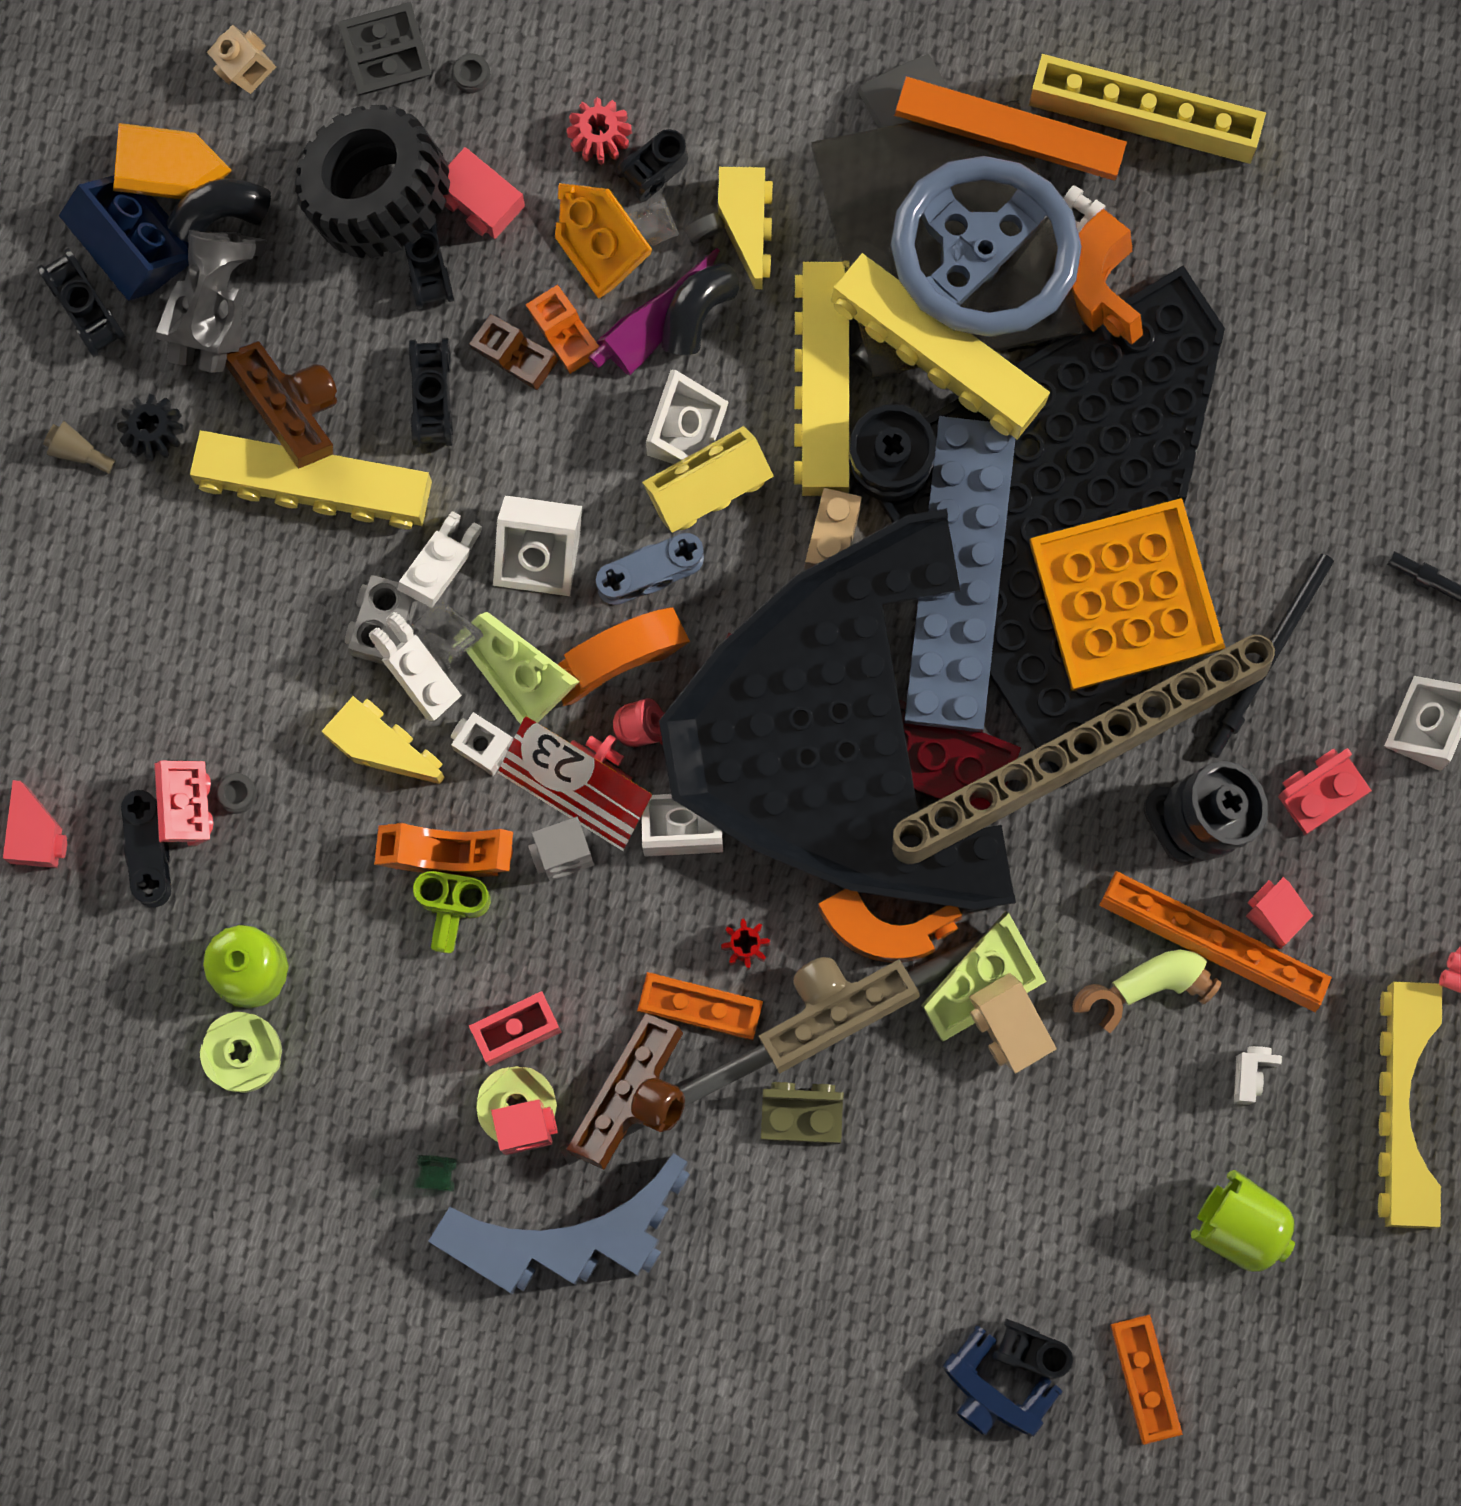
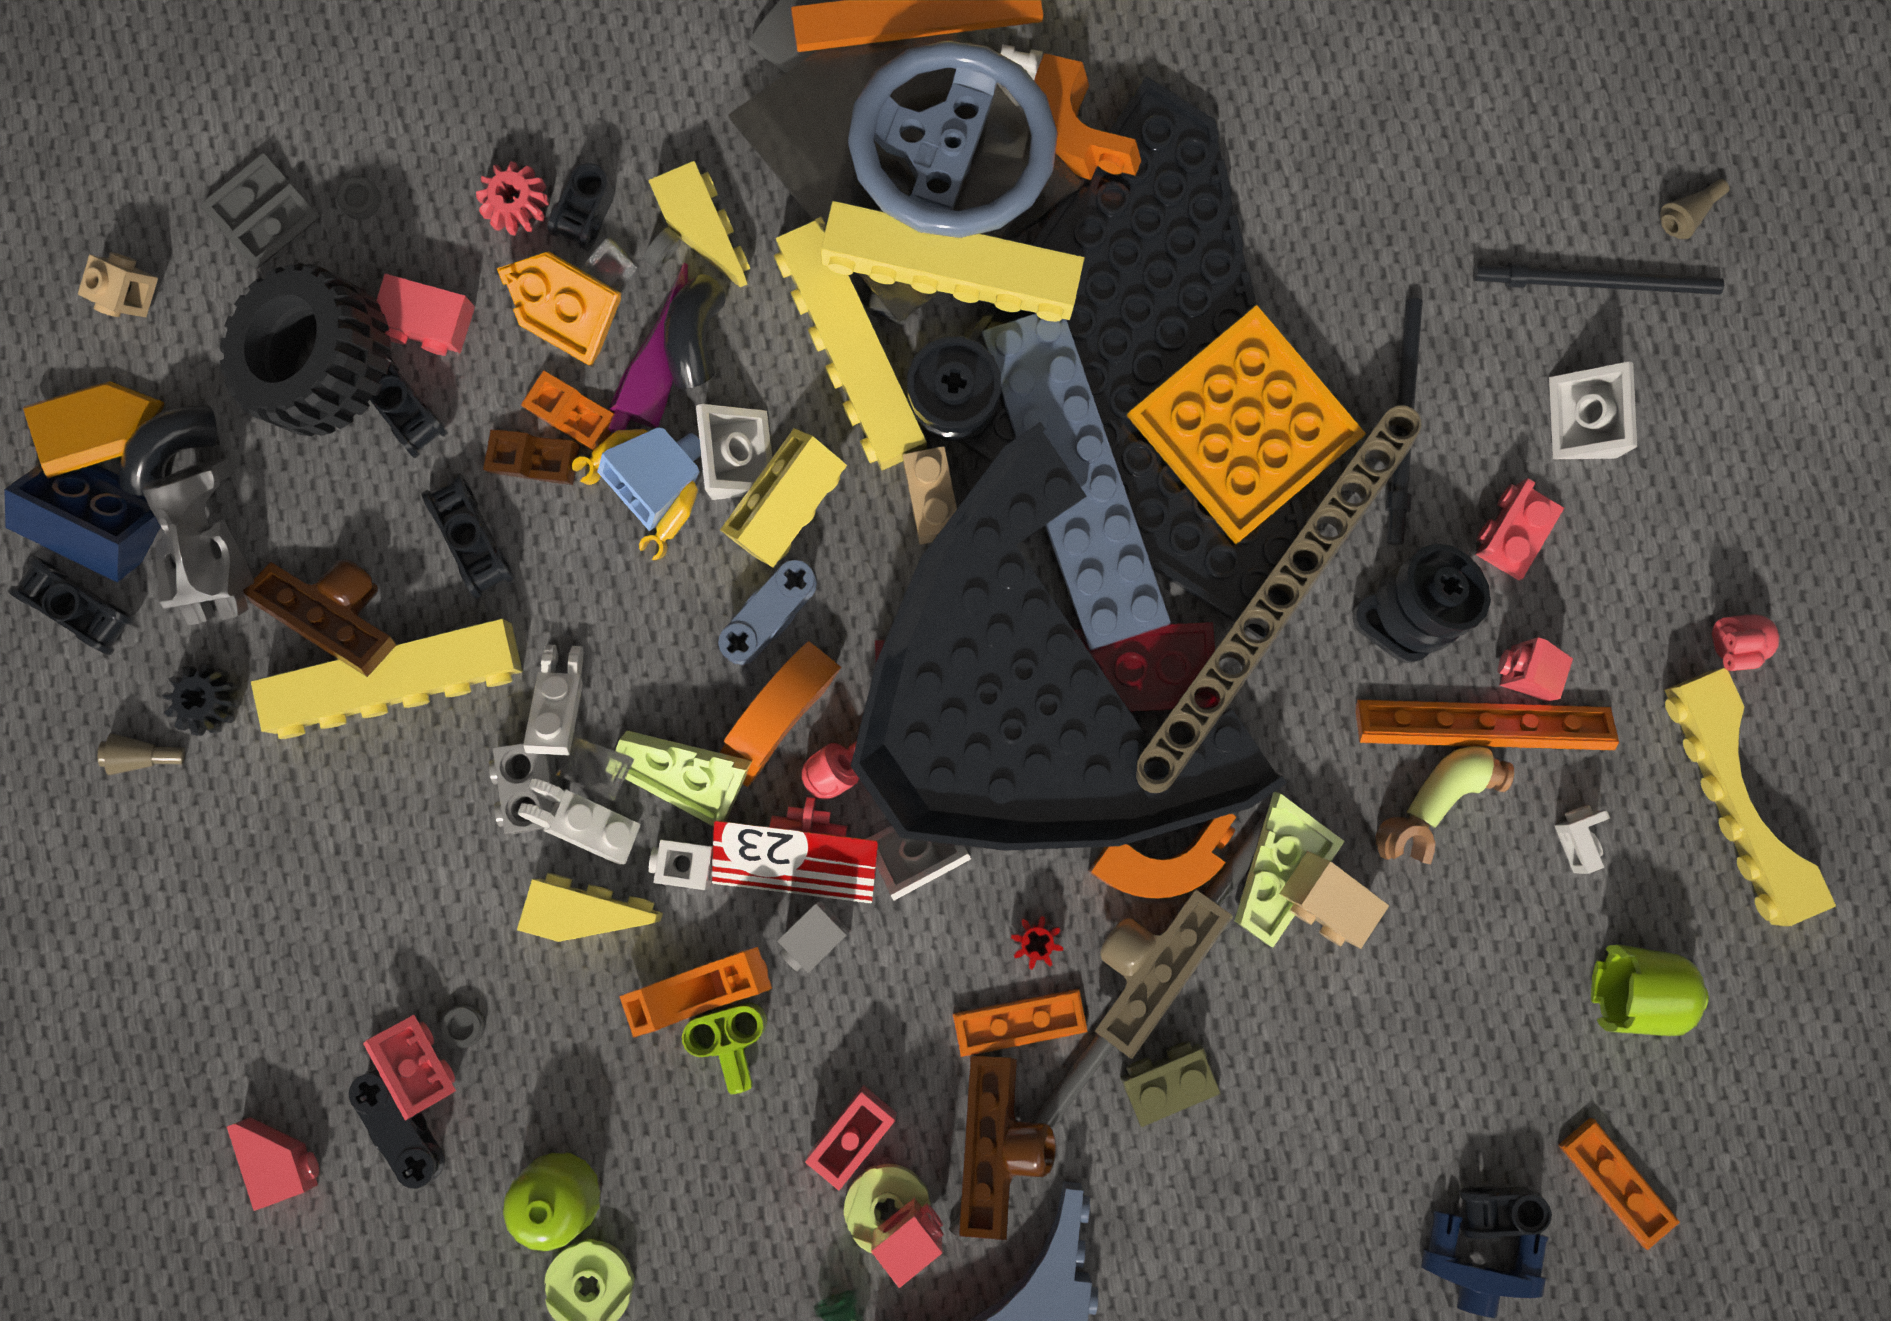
camera: 30 degrees left, 5 degrees up
(536, 545) = (644, 640): white slope -> none
(604, 411) = (650, 477): none -> light blue torso

